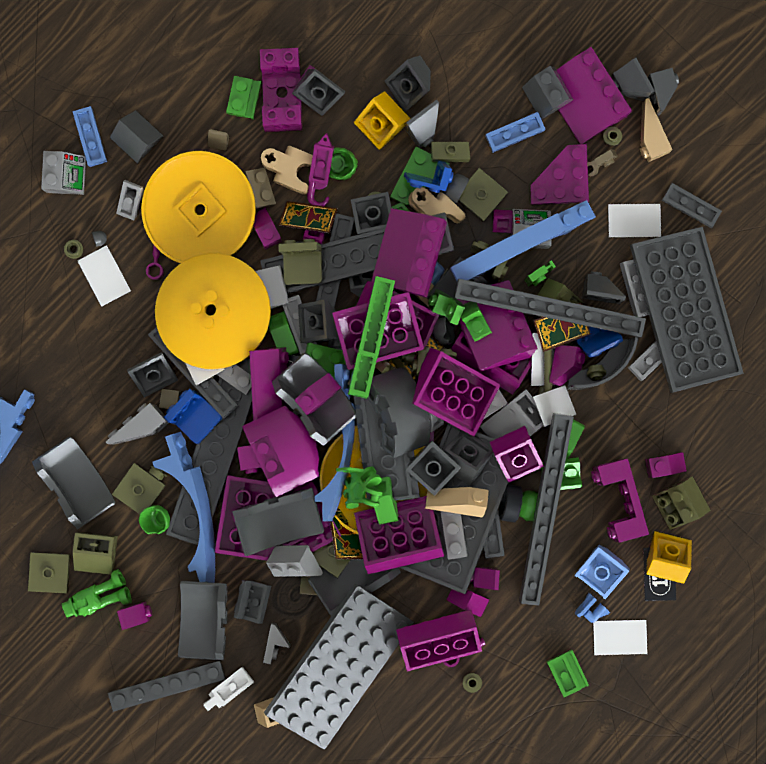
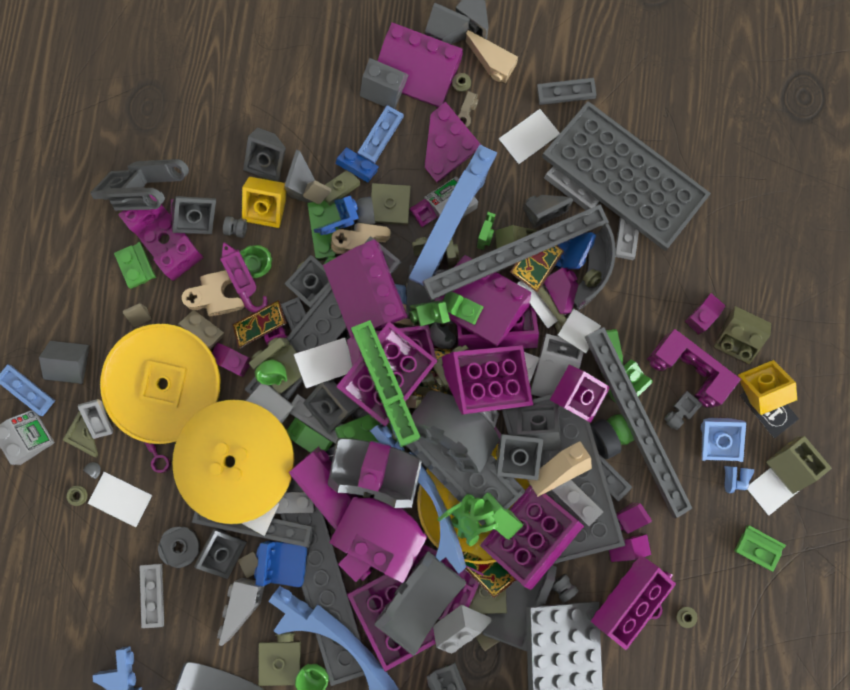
camera: 30 degrees left, 5 degrees down
(78, 368) = (151, 596): none -> light grey plate
(107, 204) = (80, 437): none -> olive tile
(116, 353) = (168, 542): none -> dark grey plate
(280, 28) = (127, 189): none -> dark grey plate
(290, 263) = (271, 372): none -> bright green hair
(337, 286) = (324, 362): none -> white sticker
(344, 124) = (235, 226): none -> dark grey wheel
(395, 587) = (564, 588): none -> dark grey wheel
(428, 144) = (316, 192): none -> dark tan slope
(478, 143) = (357, 164): none -> blue plate
(593, 525) = (686, 407): none -> dark grey plate
(645, 632) = (798, 464): none -> olive slope

